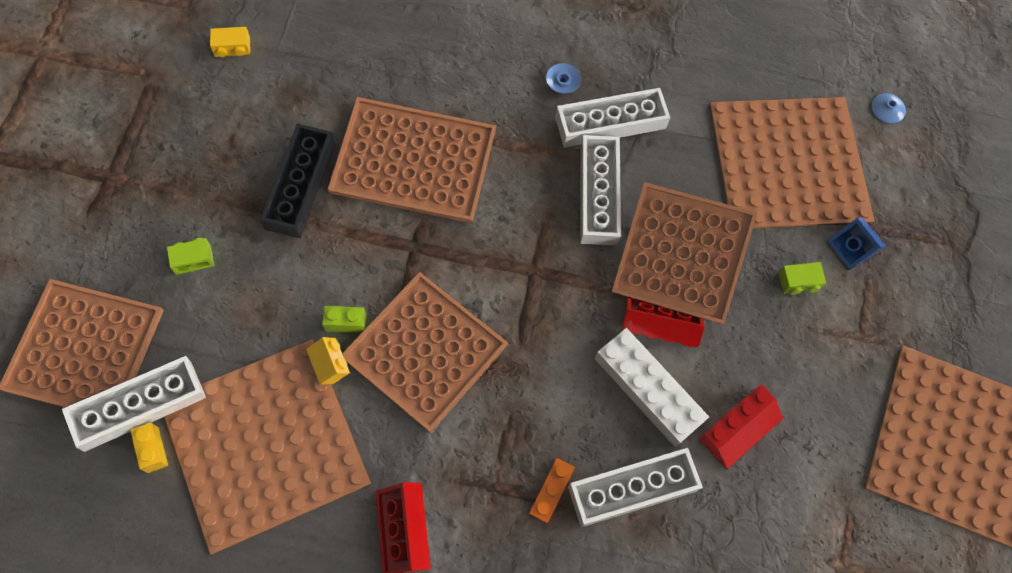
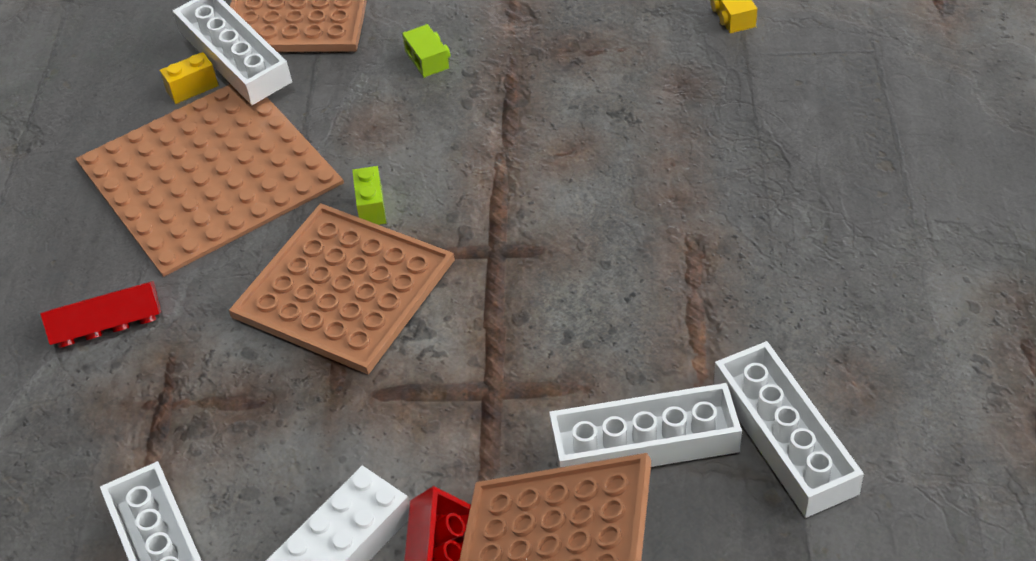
camera: 90 degrees right, 20 degrees down
(298, 181) = (551, 108): black brick -> none
(327, 361) = (310, 191): yellow brick -> none
(413, 160) = (628, 218): nougat plate -> none
(552, 491) = (176, 466): orange plate -> none
(565, 73) = (837, 346): medium blue dish -> none

